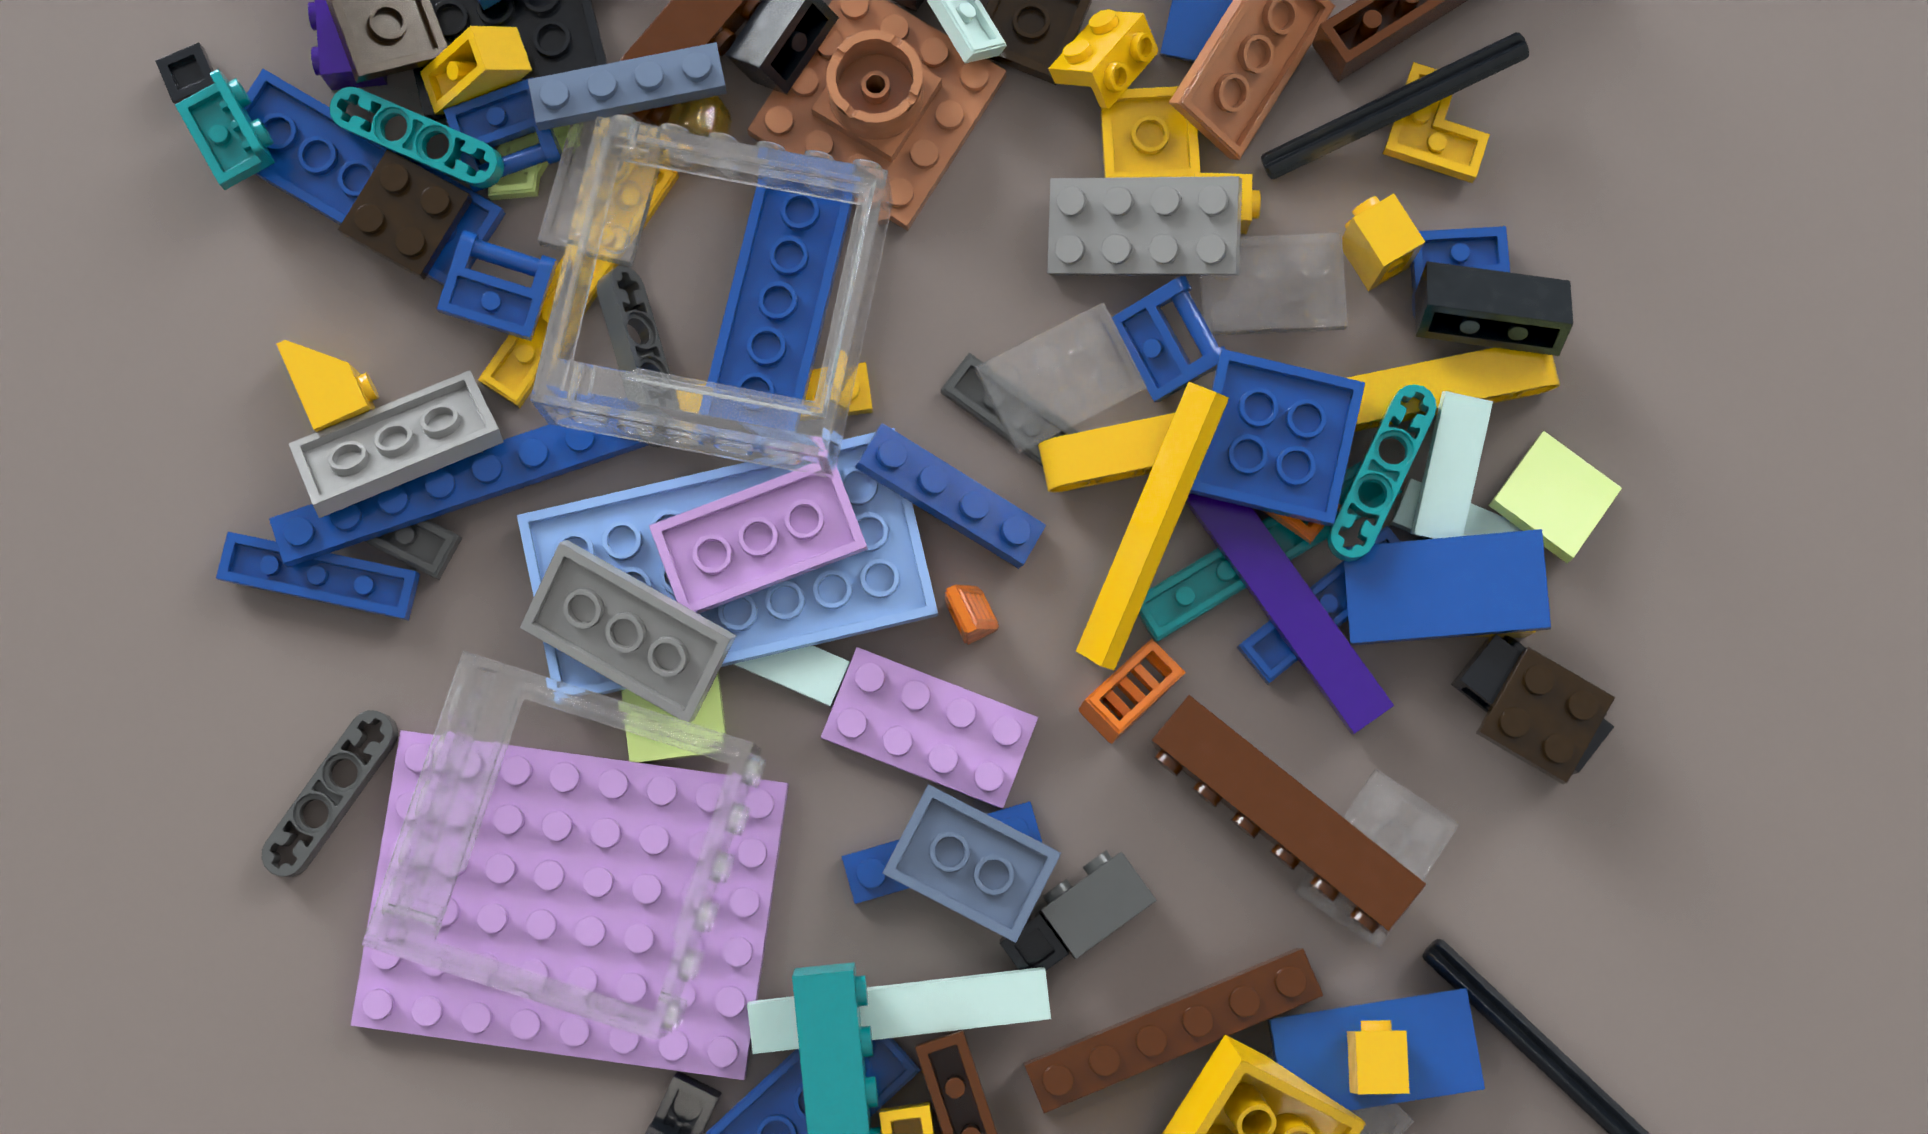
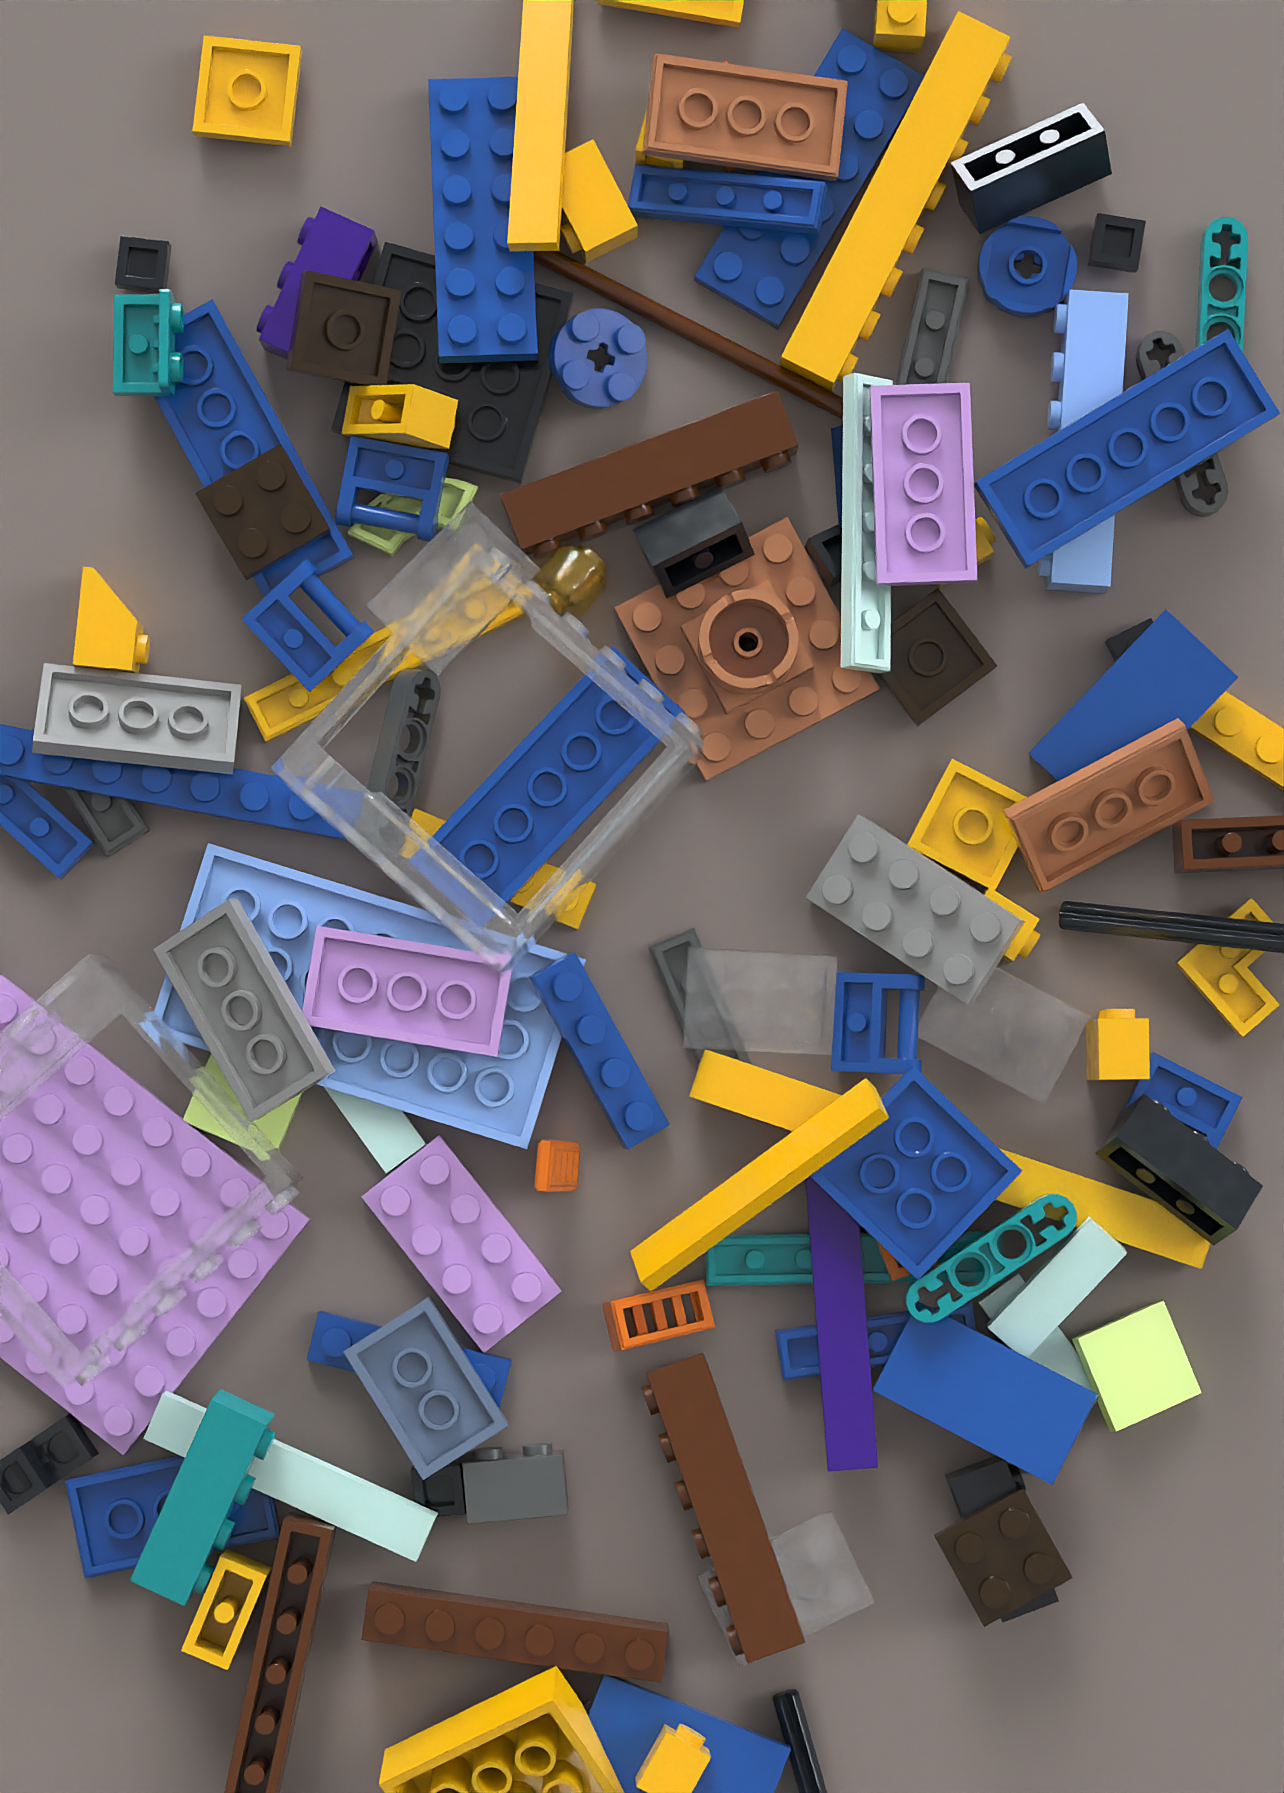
camera: 30 degrees right, 5 degrees up
(418, 133) = (315, 446): teal beam -> none
(627, 86) = (525, 513): sand blue plate -> none
(1107, 55) = (976, 730): yellow bracket -> none

